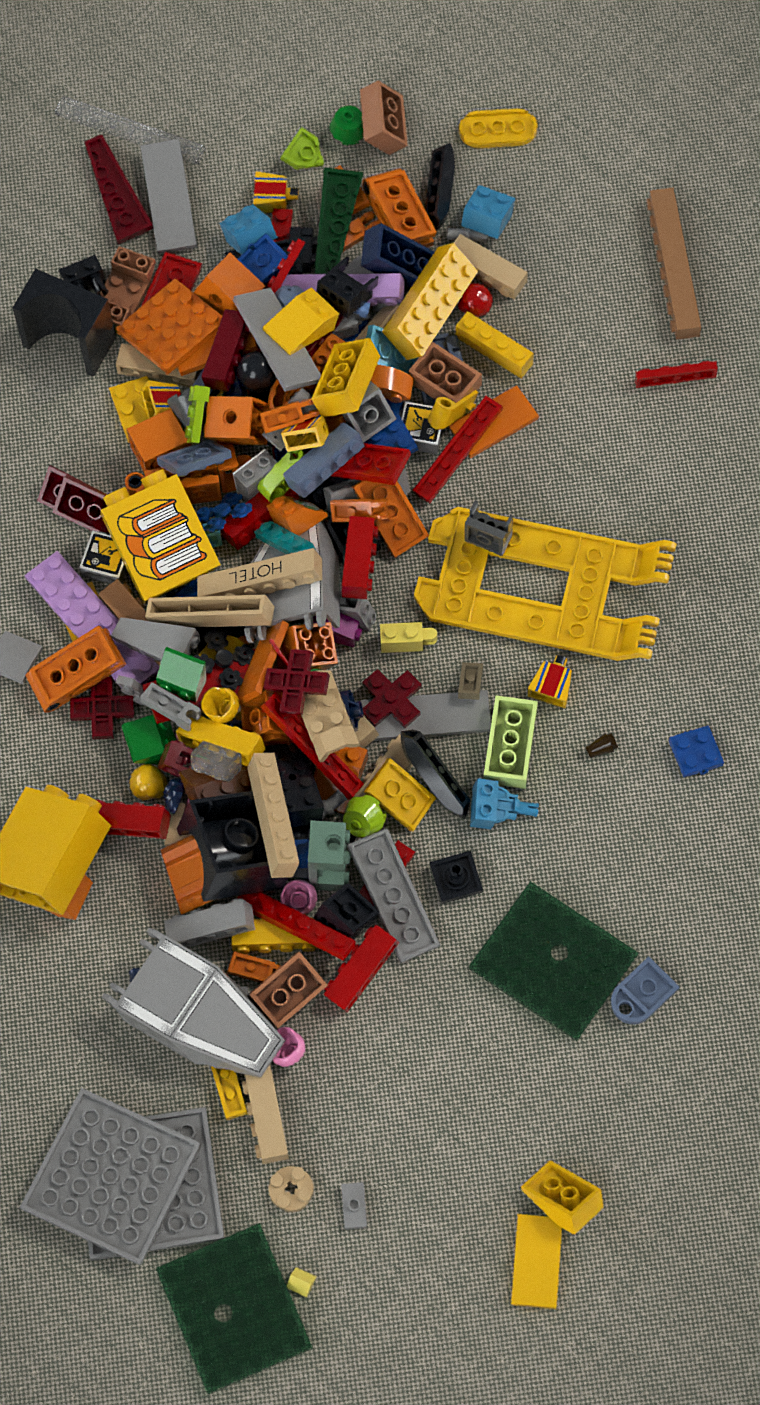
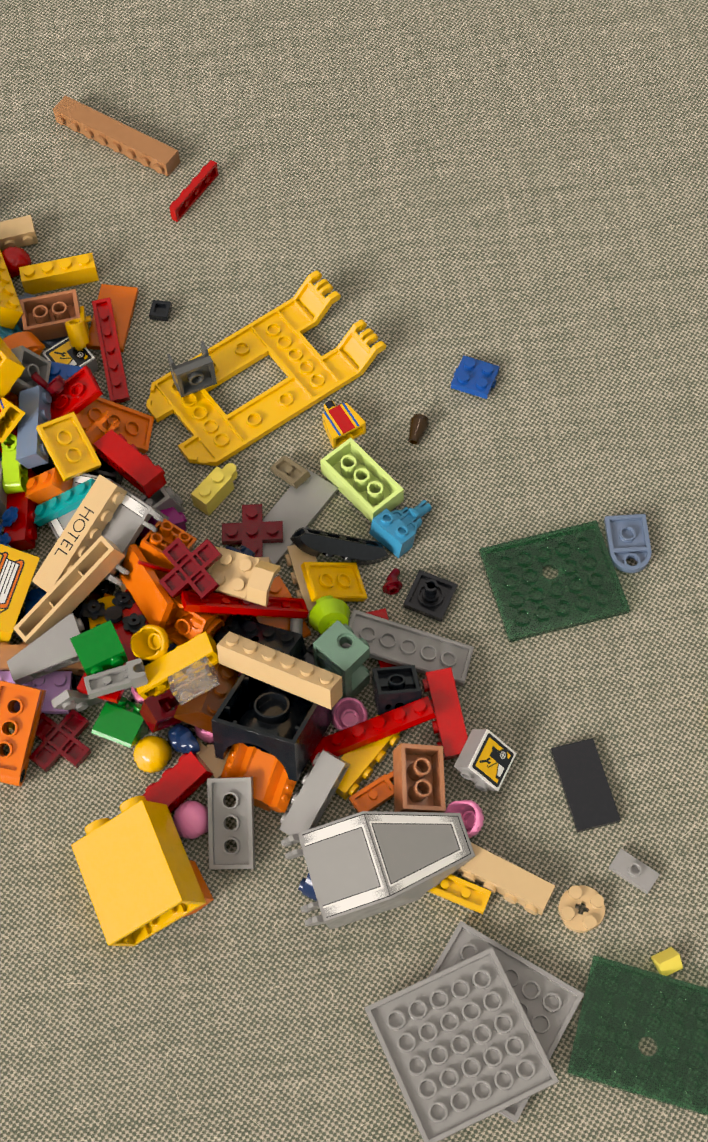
camera: 50 degrees left, 5 degrees down
(122, 854) = (191, 819): none -> bright pink hair
(152, 883) = (217, 830): none -> light grey plate
(327, 501) = (68, 446): none -> yellow plate
(344, 1025) = (485, 760): none -> piece
(369, 442) = (55, 386): none -> dark red plate
(394, 1117) = (585, 785): none -> black tile
(438, 841) = (392, 584): none -> dark red plate
(533, 452) = (160, 310): none -> black plate

